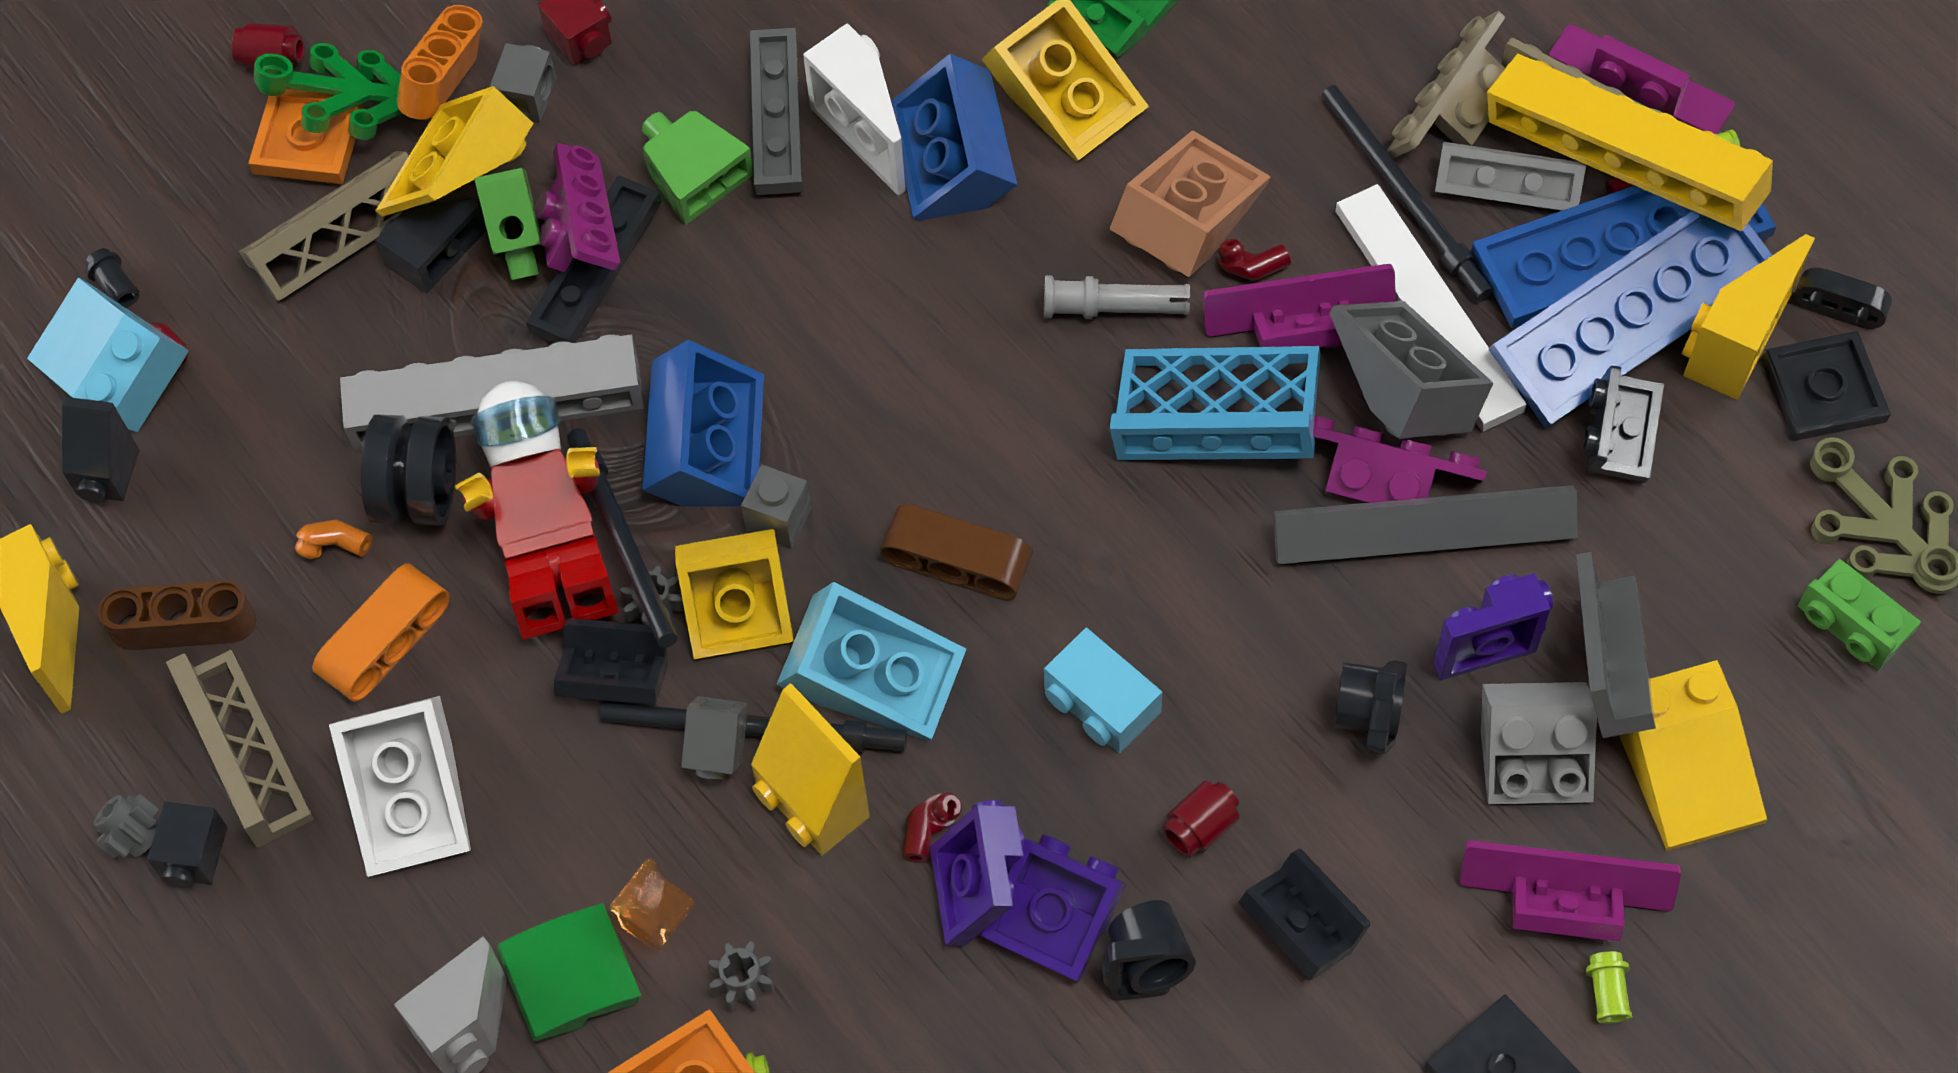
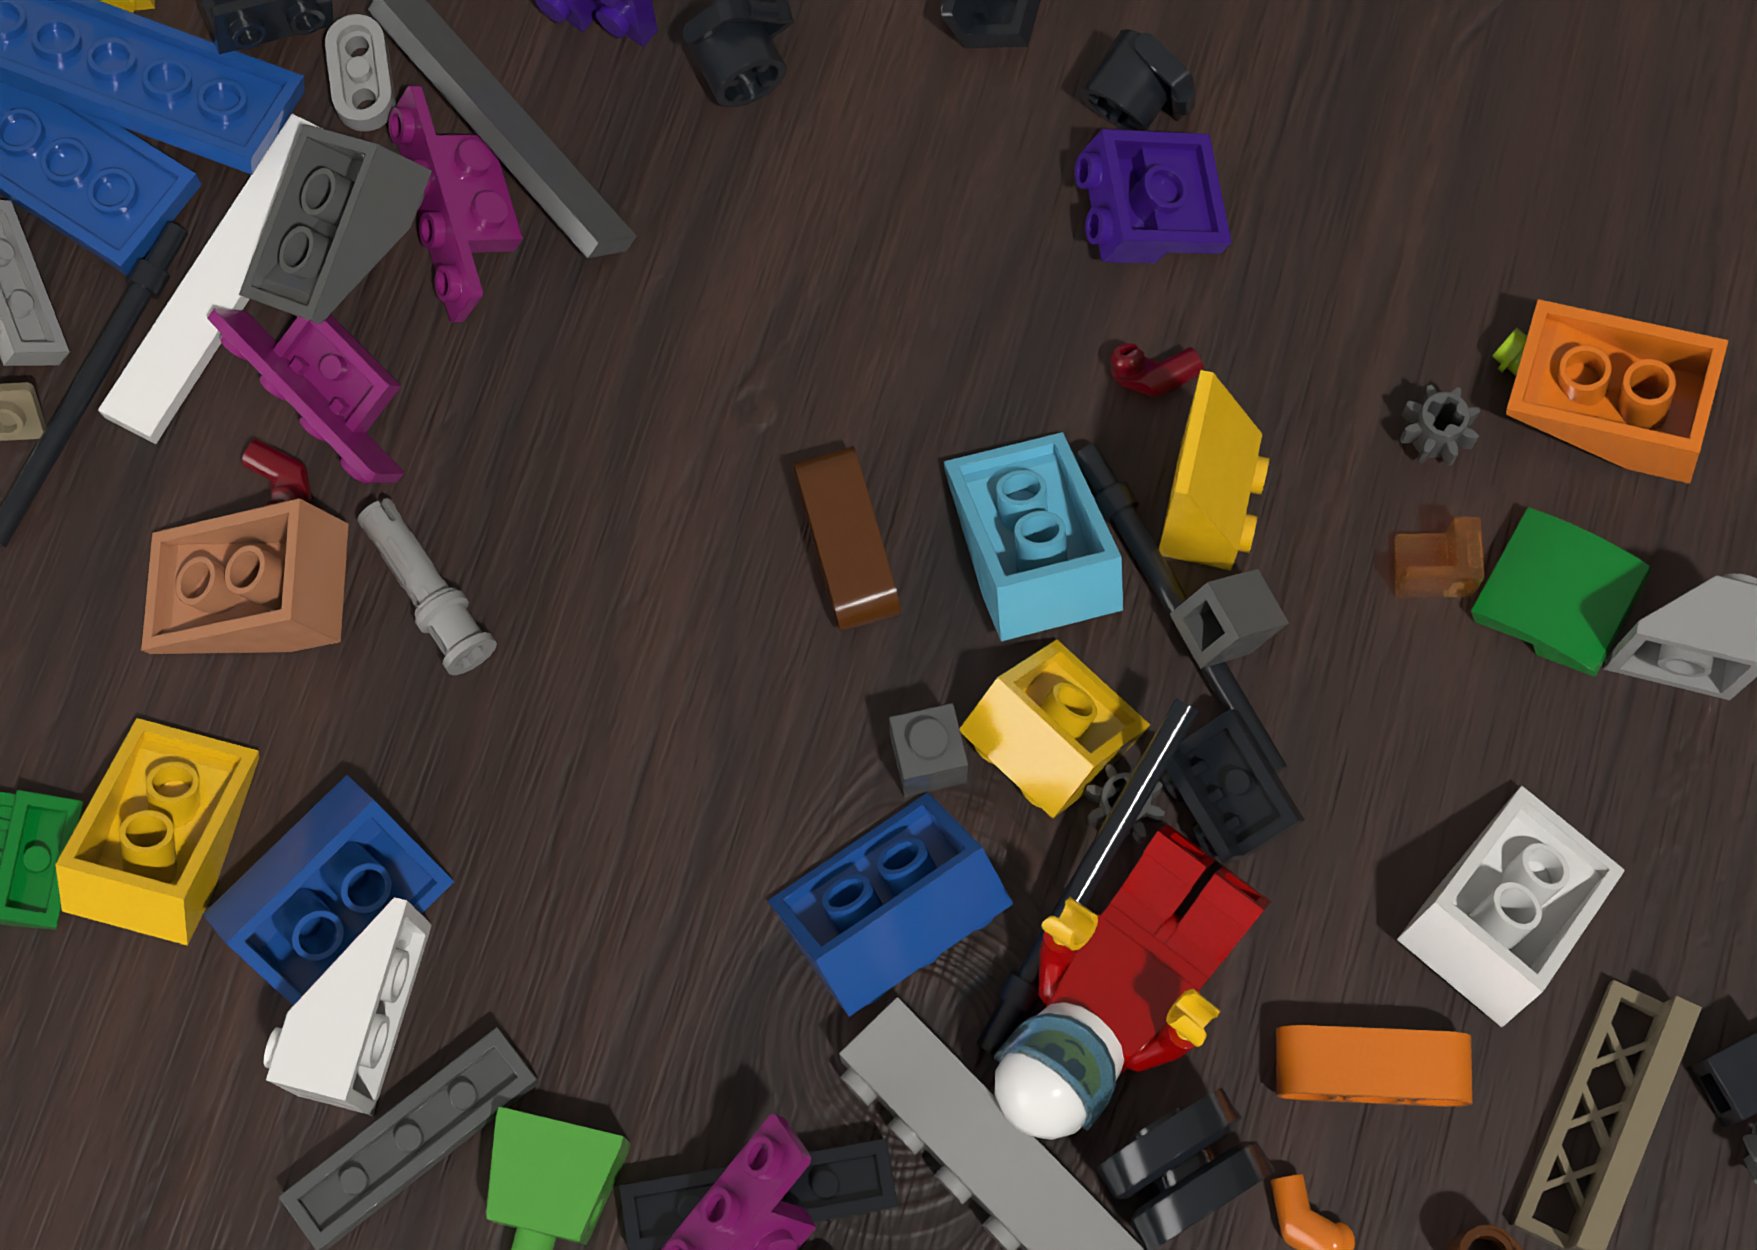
camera: 125 degrees left, 10 degrees up
(973, 868) = (1185, 264): dark purple plate -> none
(1101, 691) = (900, 298): medium azure brick -> none
(1201, 818) = (966, 128): dark red brick -> none
(1214, 431) = (538, 367): dark azure fence -> none
(1531, 461) = (360, 76): none -> light grey plate

